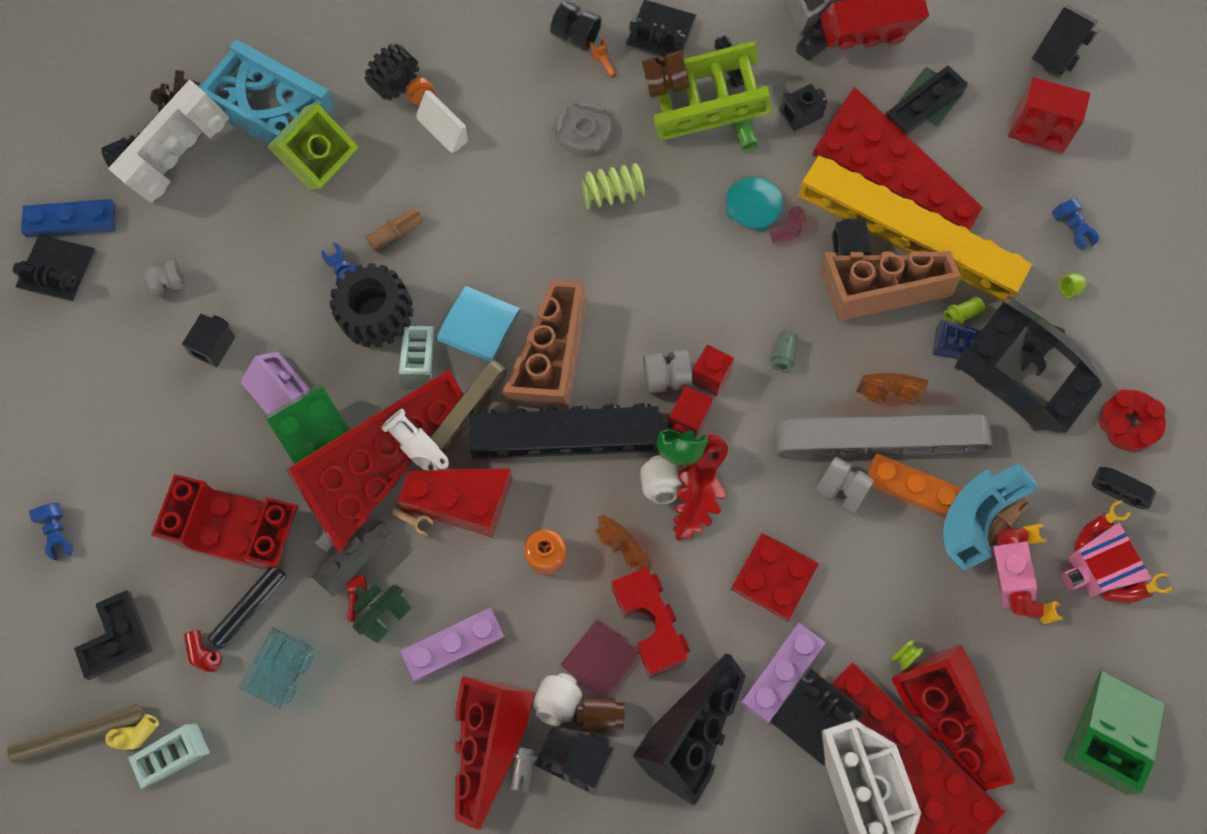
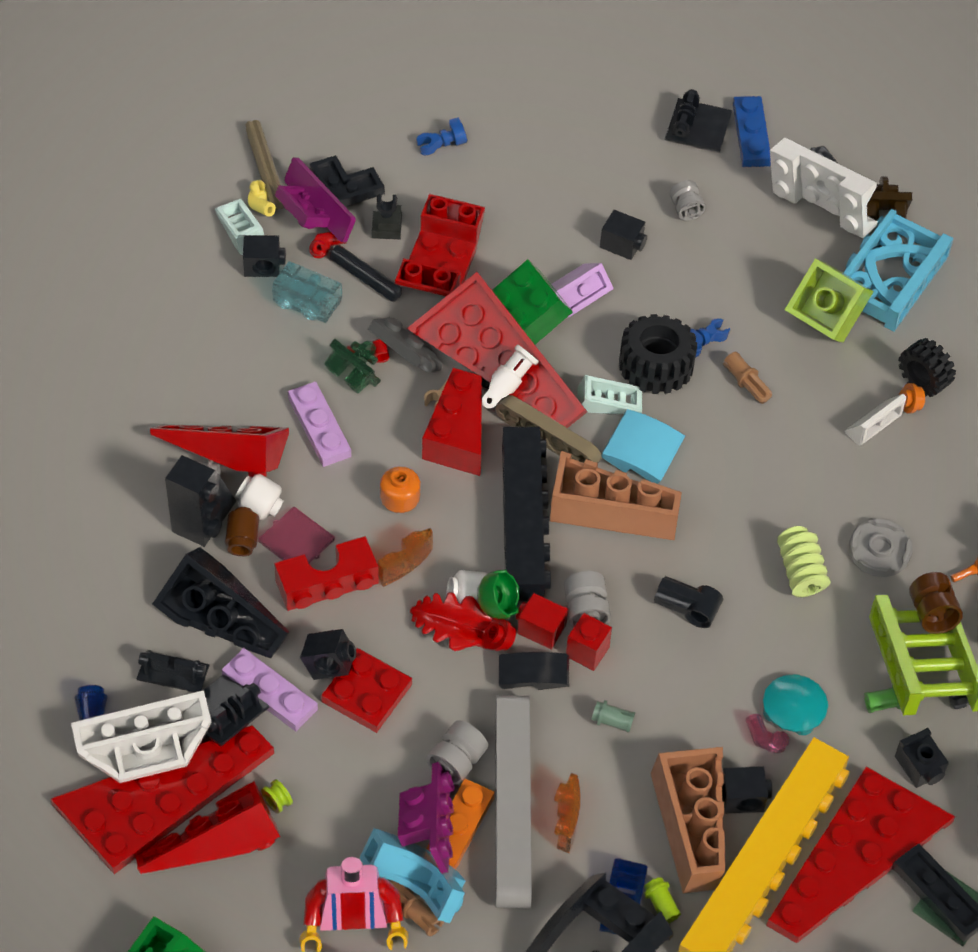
camera: 90 degrees right, 15 degrees down
(148, 669) = (313, 202): none -> magenta bracket
(175, 586) = (387, 220): none -> pearl dark grey piece
(221, 722) = (262, 255): none -> black brick
(658, 280) = (697, 604): none -> black piece
(745, 418) = (535, 669): none -> black slope
(751, 611) = (328, 654): none -> black brick
(773, 774) = (172, 671): none -> black hinge
(929, 507) = (426, 815): none -> magenta bracket

